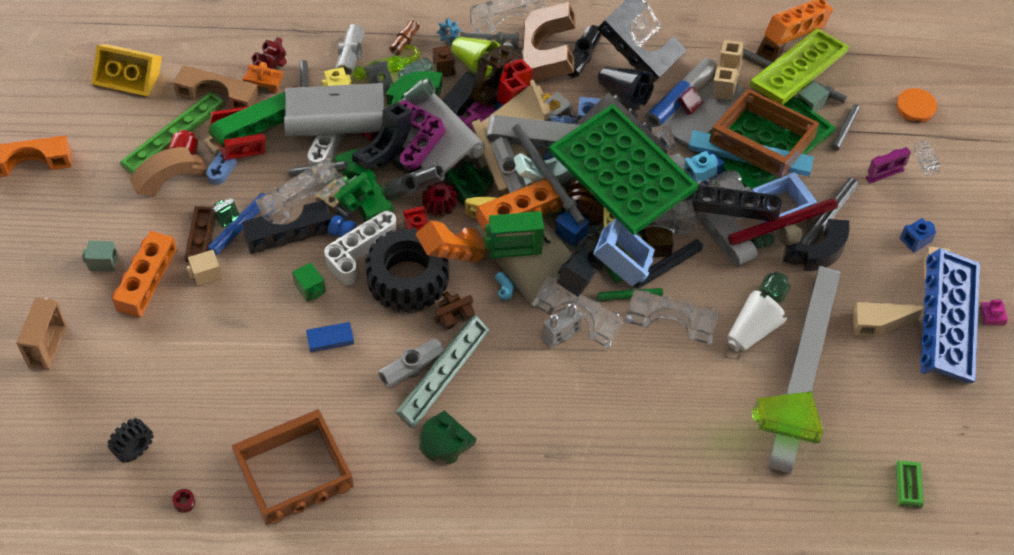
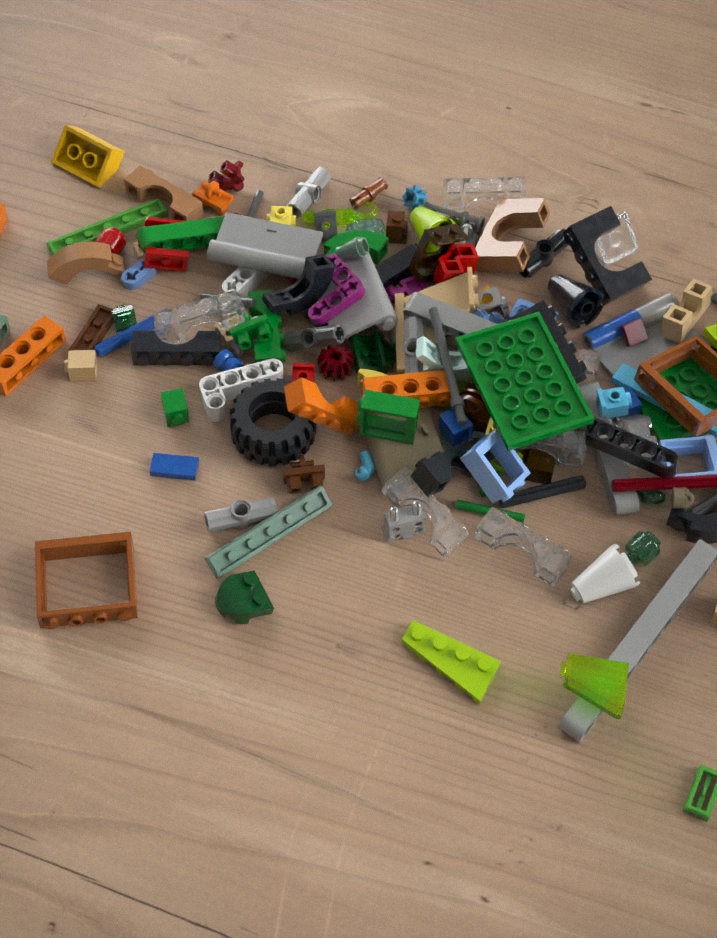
camera: 20 degrees right, 0 degrees up
(663, 437) = (462, 664): none -> lime wing

